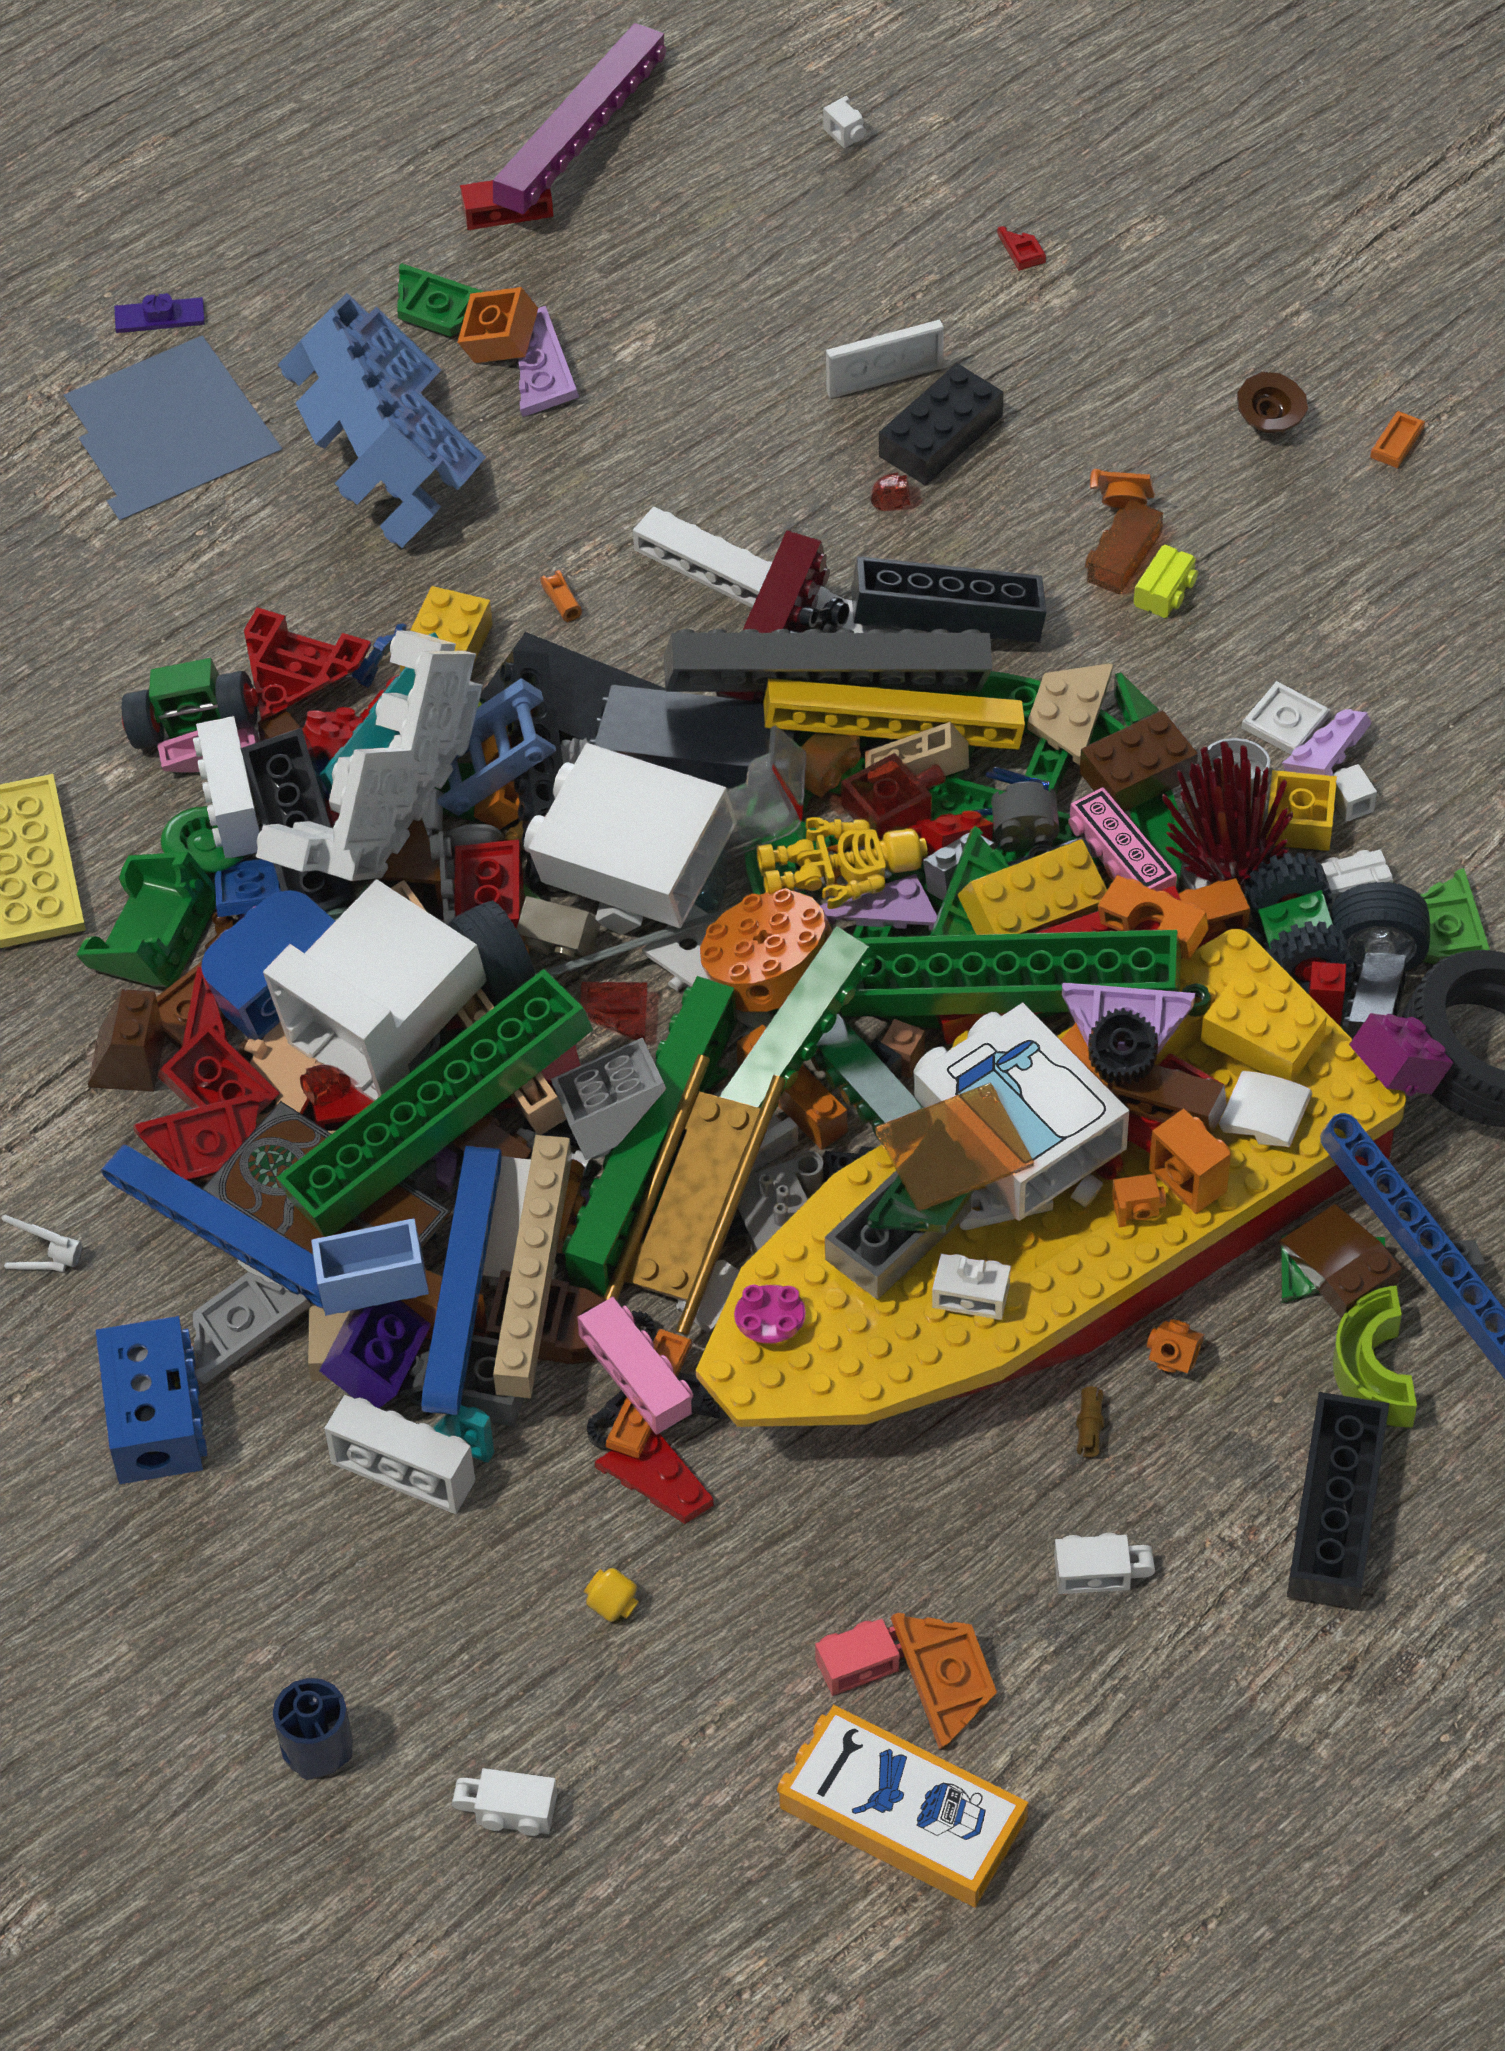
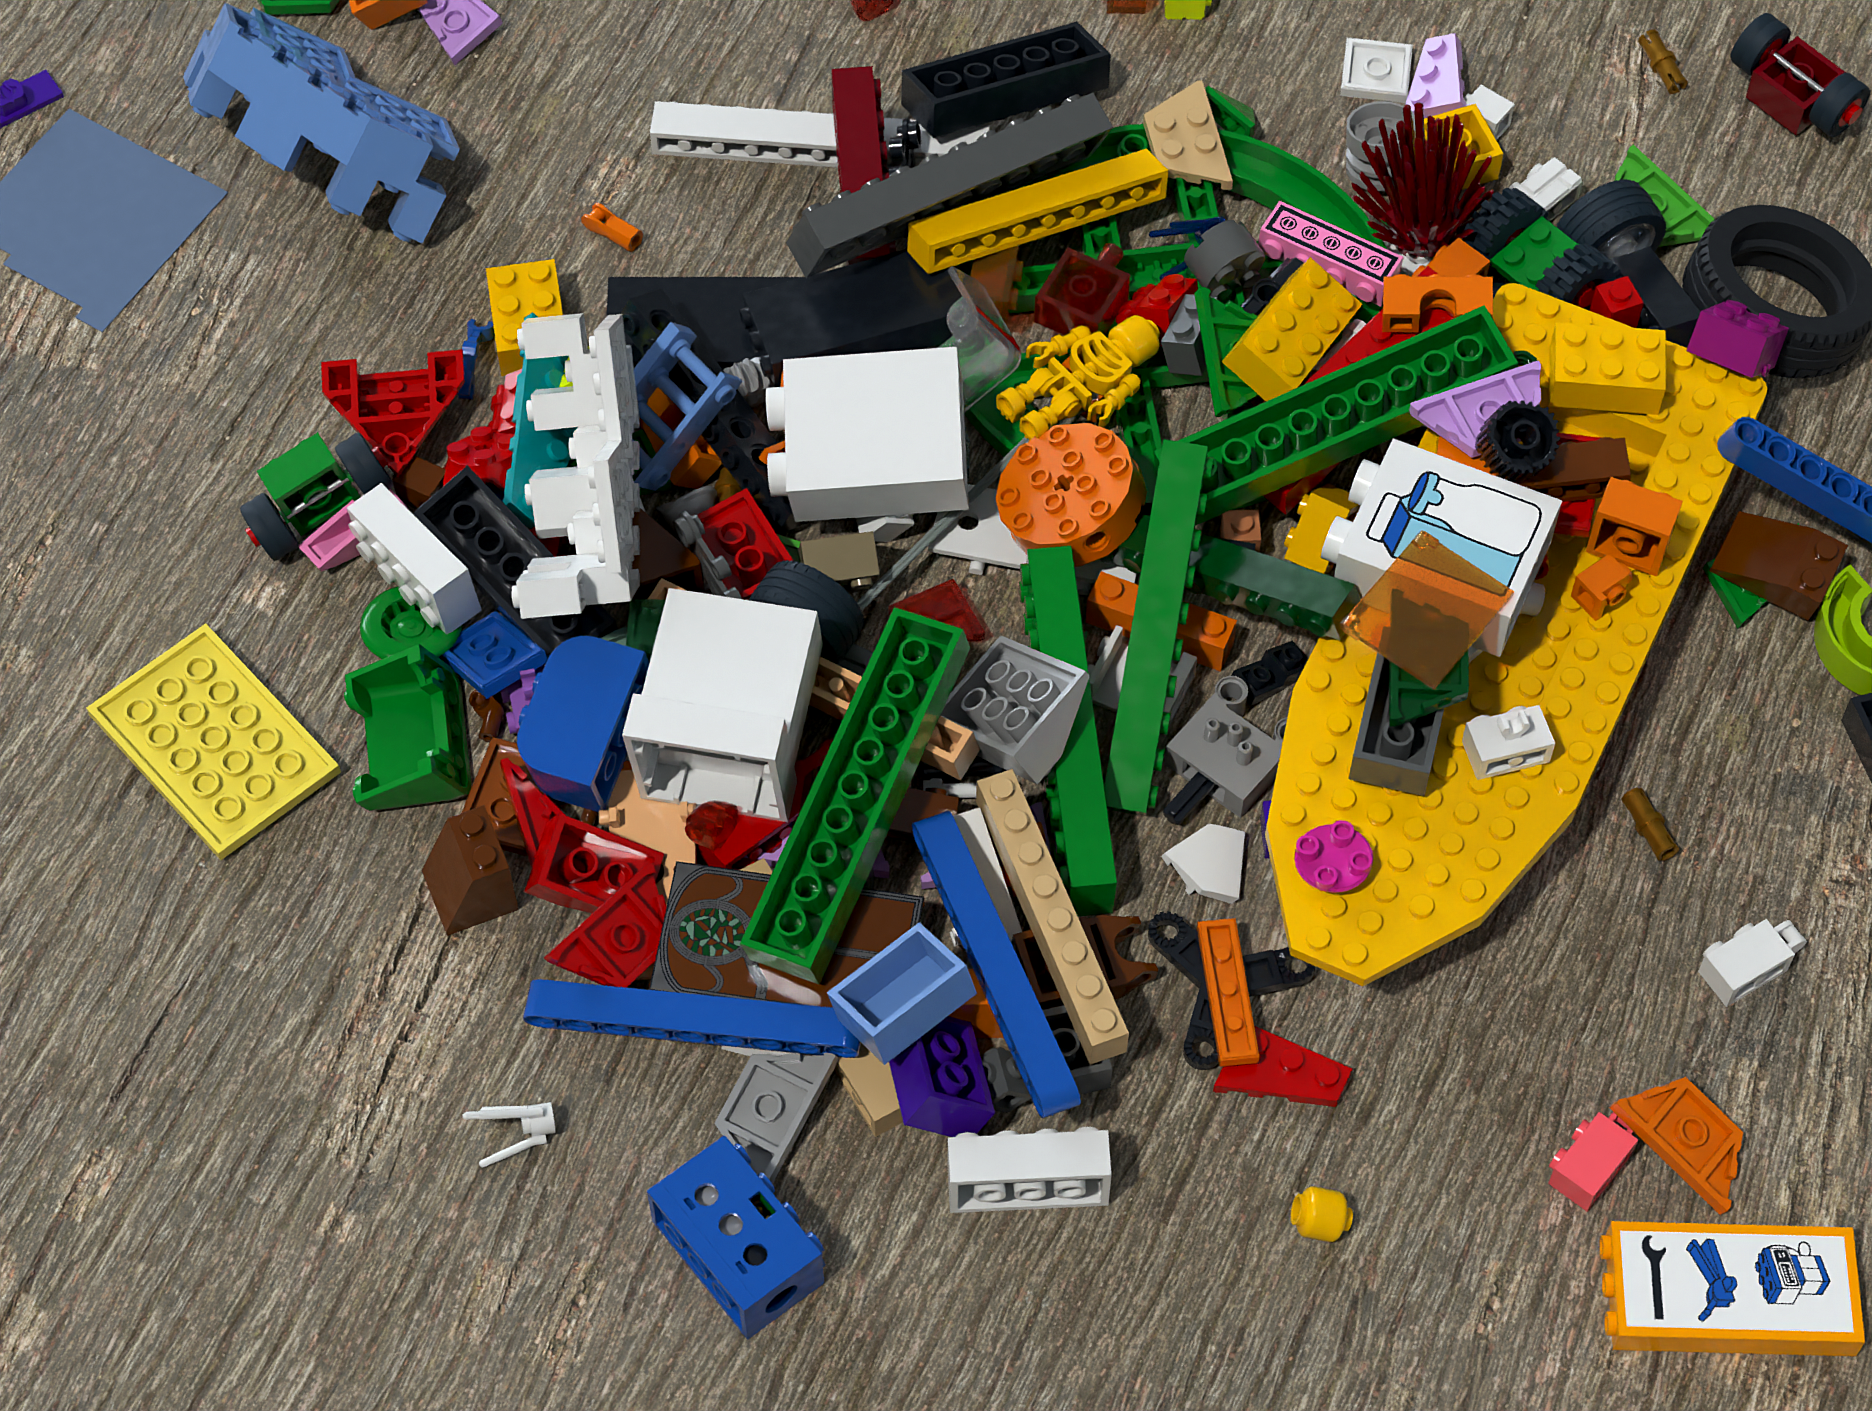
camera: 30 degrees left, 5 degrees up
(471, 1426) = (1090, 1113): teal wing -> none
(635, 1365) = (1207, 970): bright pink brick -> none
(698, 1196) = (1159, 770): pearl gold piece -> none
(896, 906) = (1155, 400): lavender wing -> none
(920, 751) = (1086, 234): tan slope -> none
(1138, 761) = (1291, 161): reddish brown brick -> none
(1174, 1346) = (1683, 714): orange brick -> none
(1265, 1108) = (1659, 444): white slope -> none

